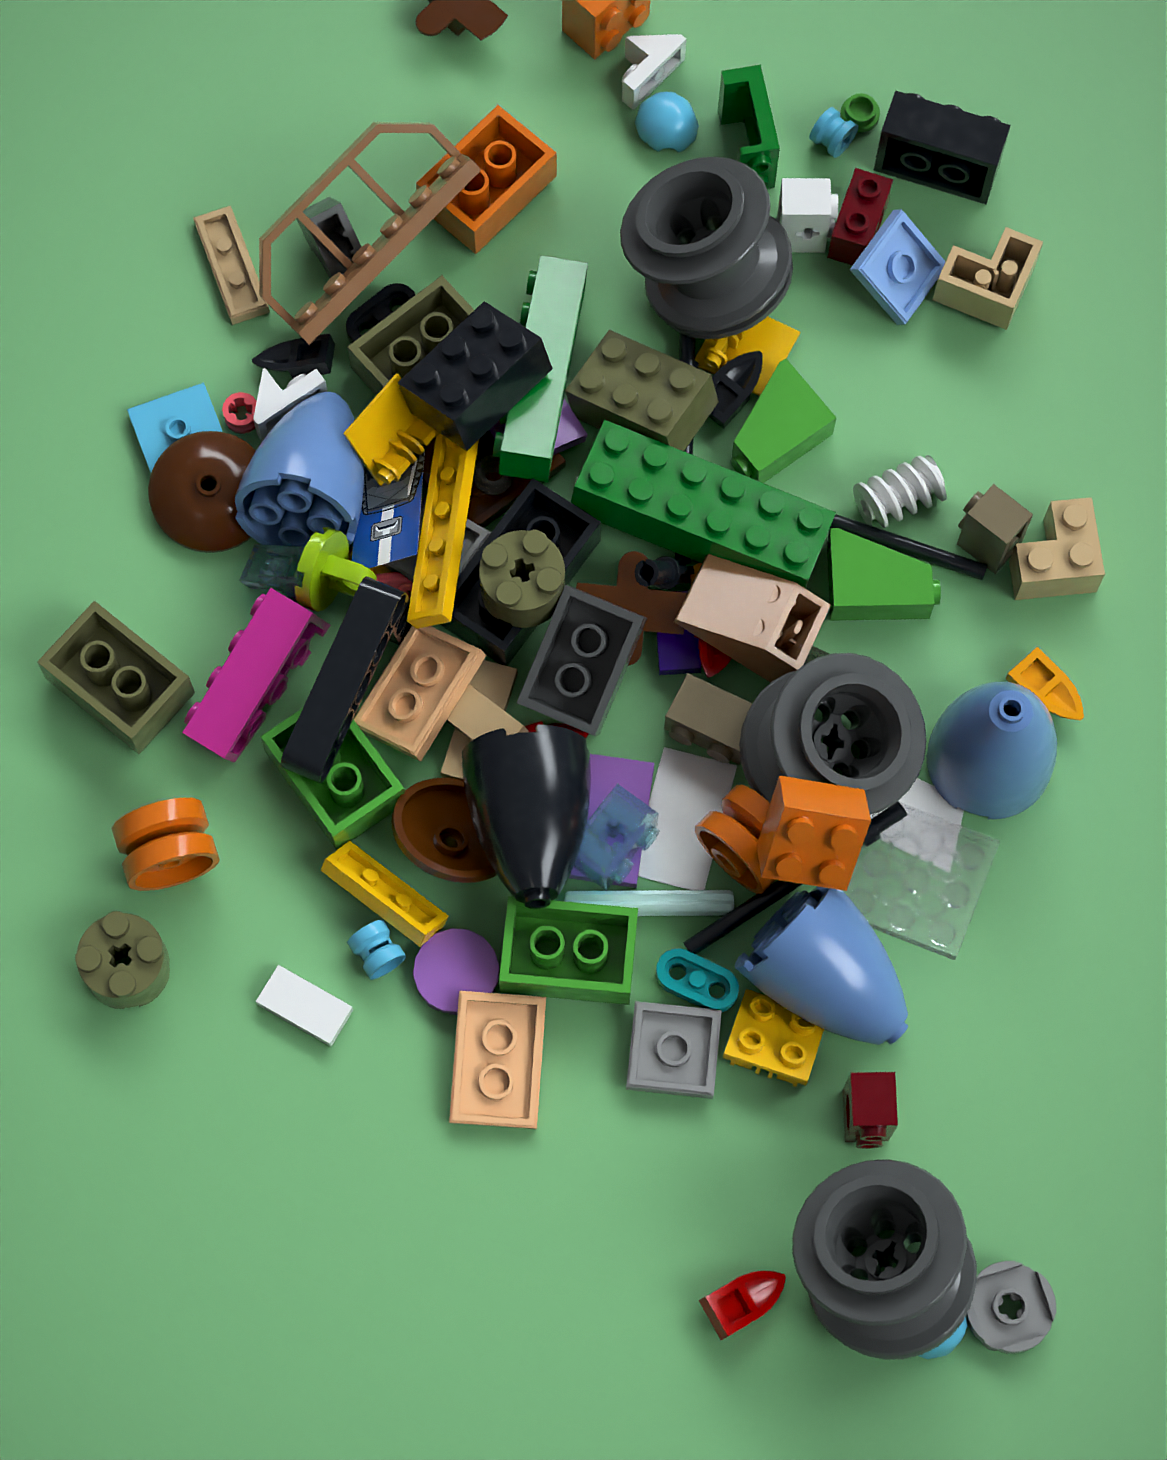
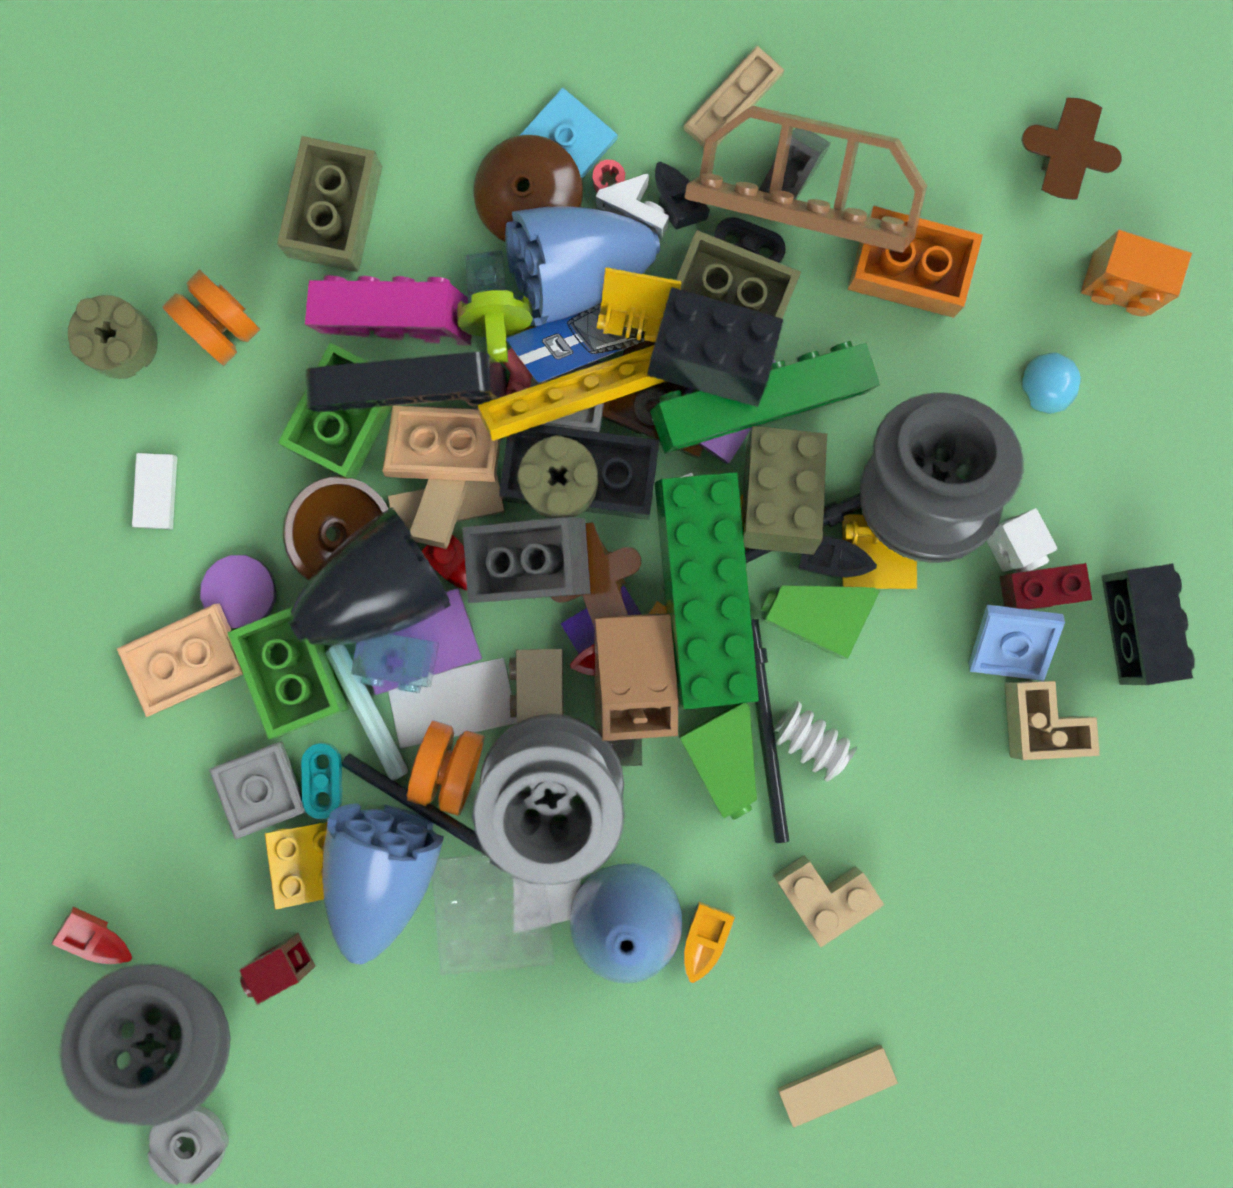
camera: 65 degrees right, 15 degrees up
(376, 949) = (224, 515): medium azure wheel -> none
(384, 893) = (267, 505): yellow plate -> none
(653, 61) = (1104, 344): white slope -> none
(663, 572) = (634, 587): black axle -> none
(746, 100) = (1105, 436): green panel -> none
(813, 833) = (445, 829): orange brick -> none
(833, 132) = (1115, 526): medium azure wheel -> none
(862, 111) = (1147, 539): bright green plate -> none
(993, 527) = (816, 835): dark tan brick -> none

